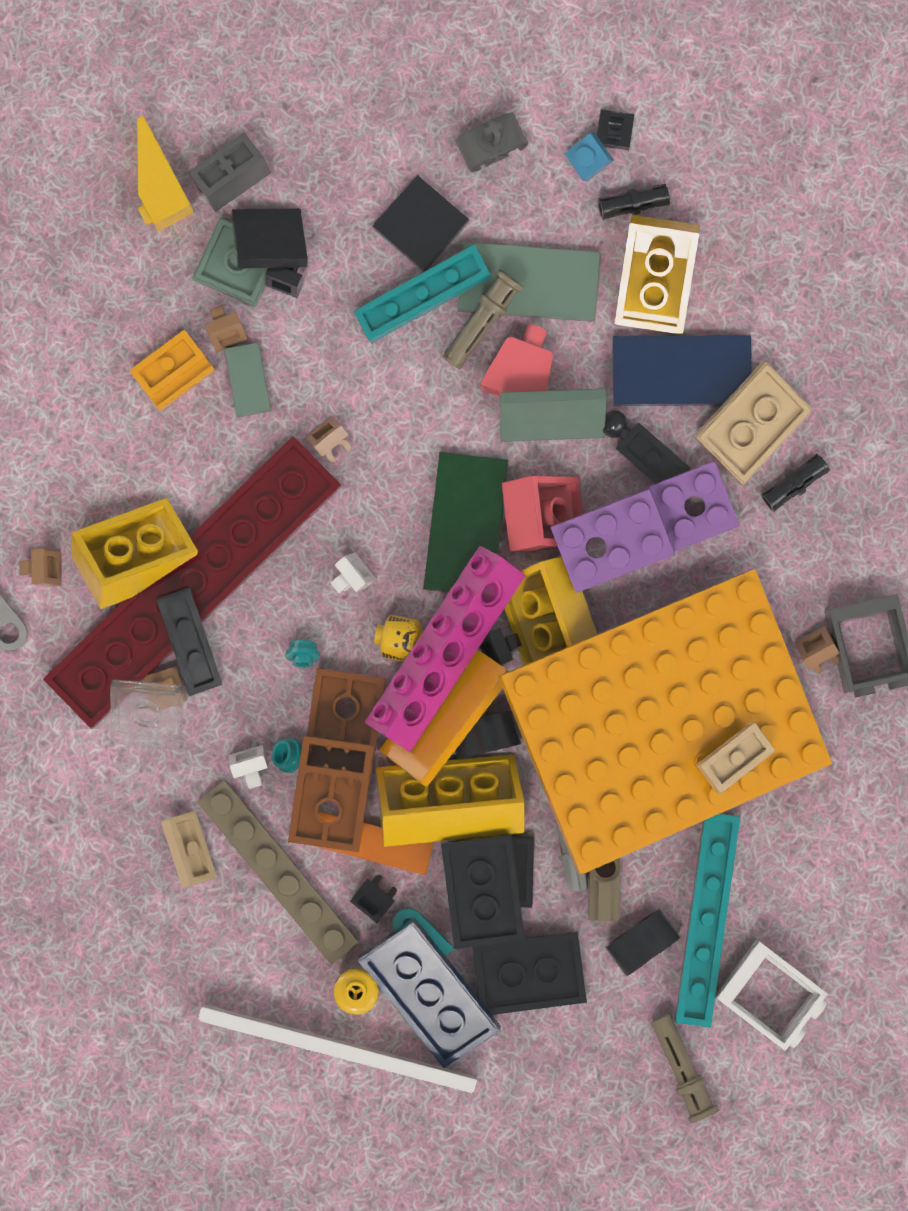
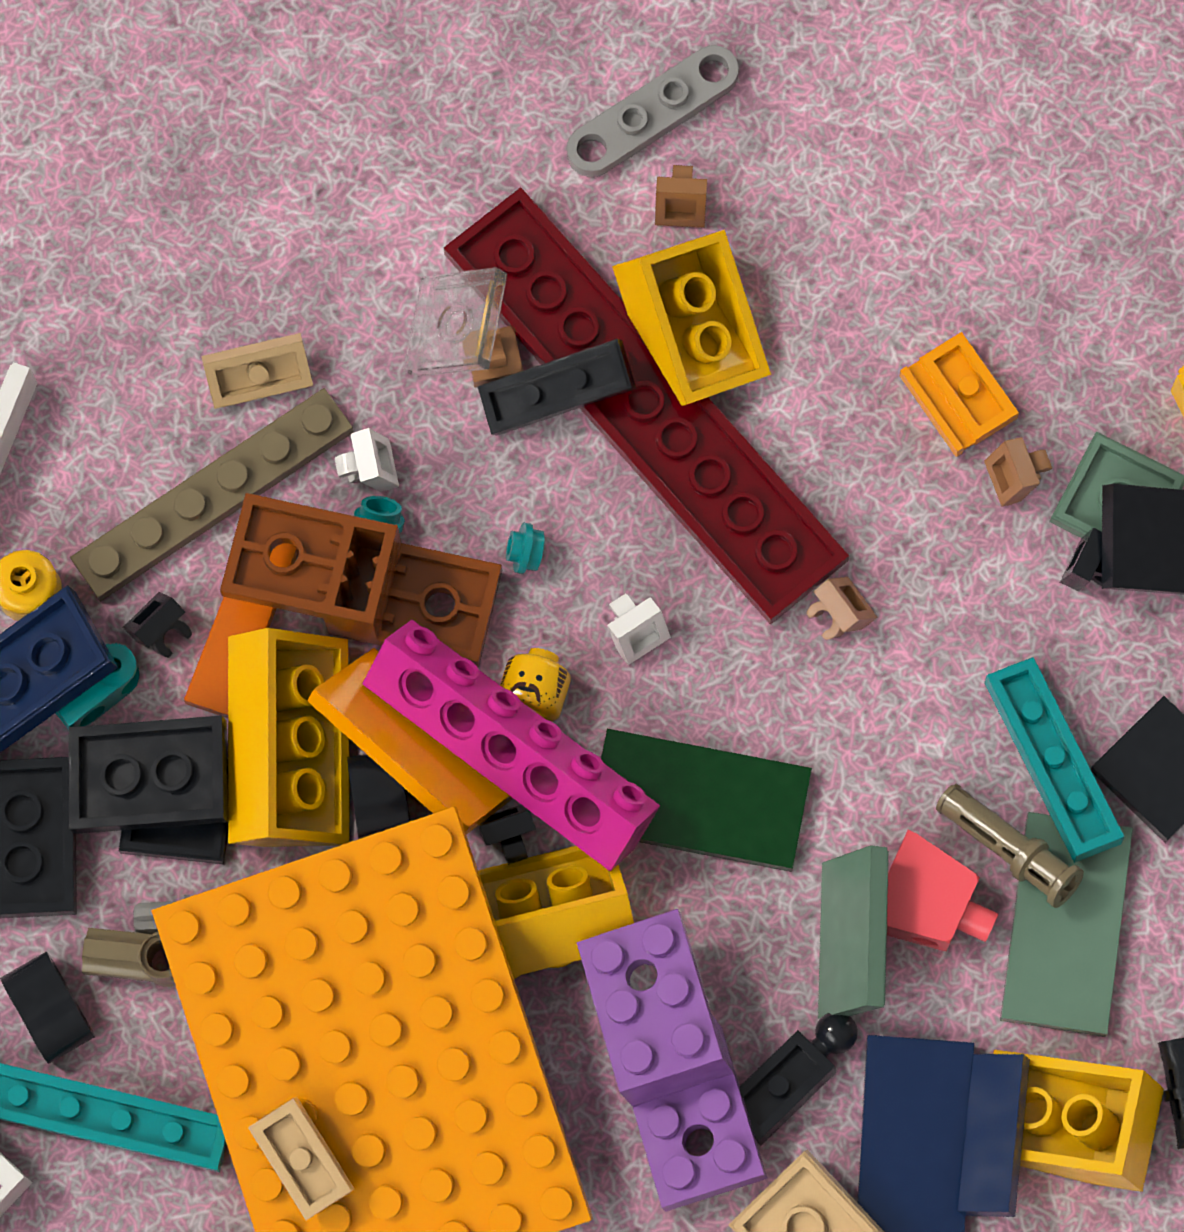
camera: 95 degrees right, 10 degrees down
(247, 380) = (939, 501): sand green tile -> none
(536, 505) = (717, 906): coral slope -> none
(673, 319) = (994, 1135): none -> dark blue tile

